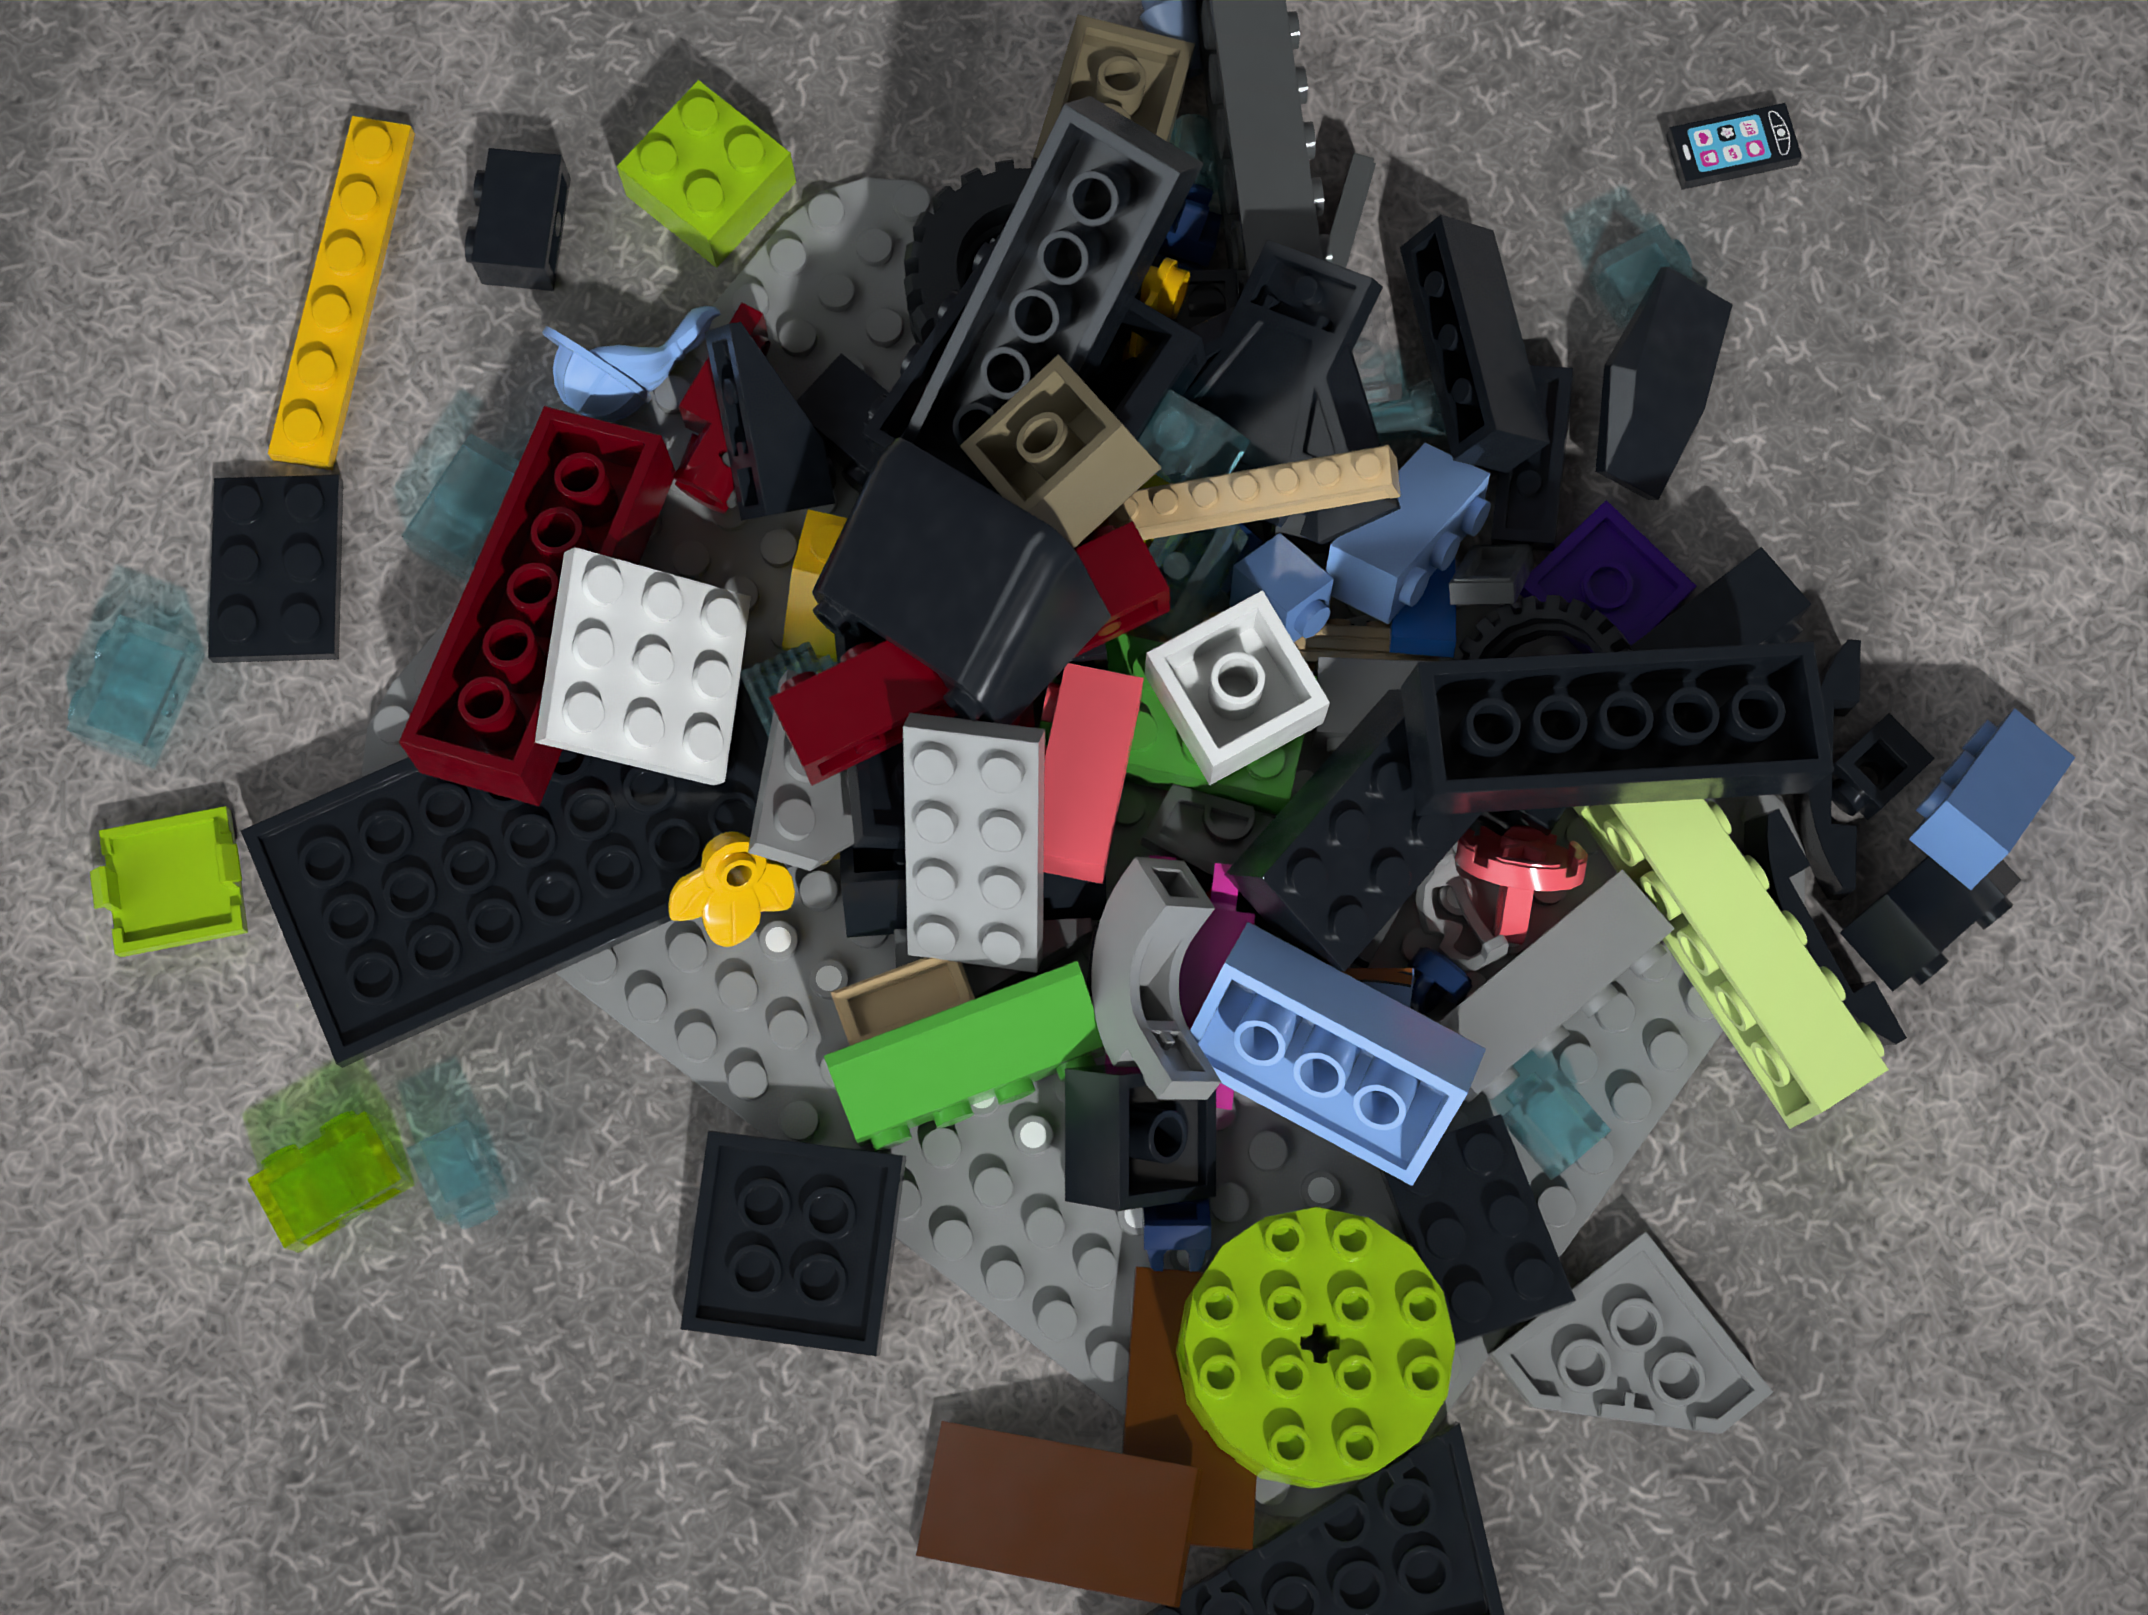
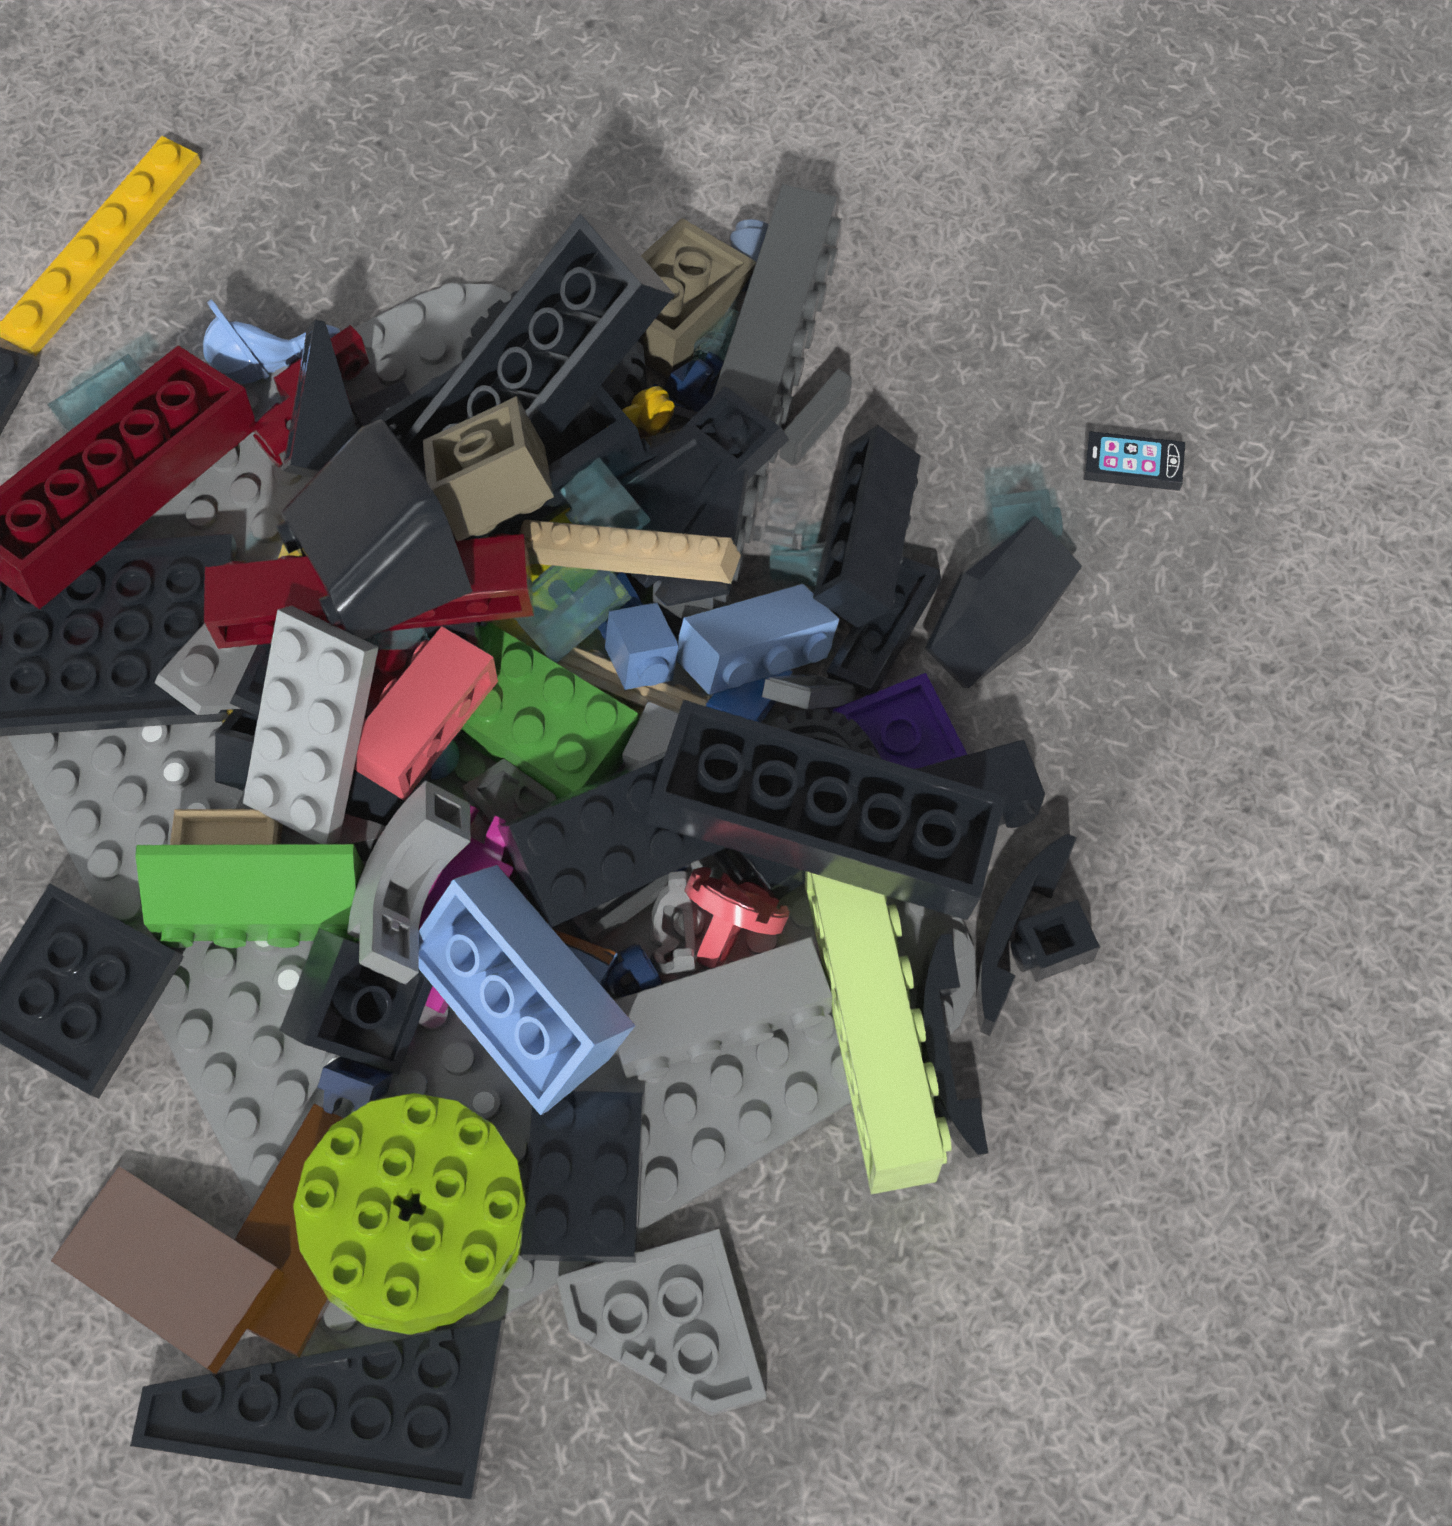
camera: 25 degrees right, 10 degrees down
(519, 219) = (237, 233): black brick -> none
(643, 667) = (150, 535): white plate -> none
(707, 173) = (377, 243): lime brick -> none
(731, 890) = (147, 725): yellow plate -> none
(1236, 687) = (559, 689): white brick -> none
(1553, 1122) = (679, 1113): clear light blue brick -> none
(1922, 916) = (1055, 1063): black brick -> none
(1989, 796) = (1129, 989): medium blue brick -> none

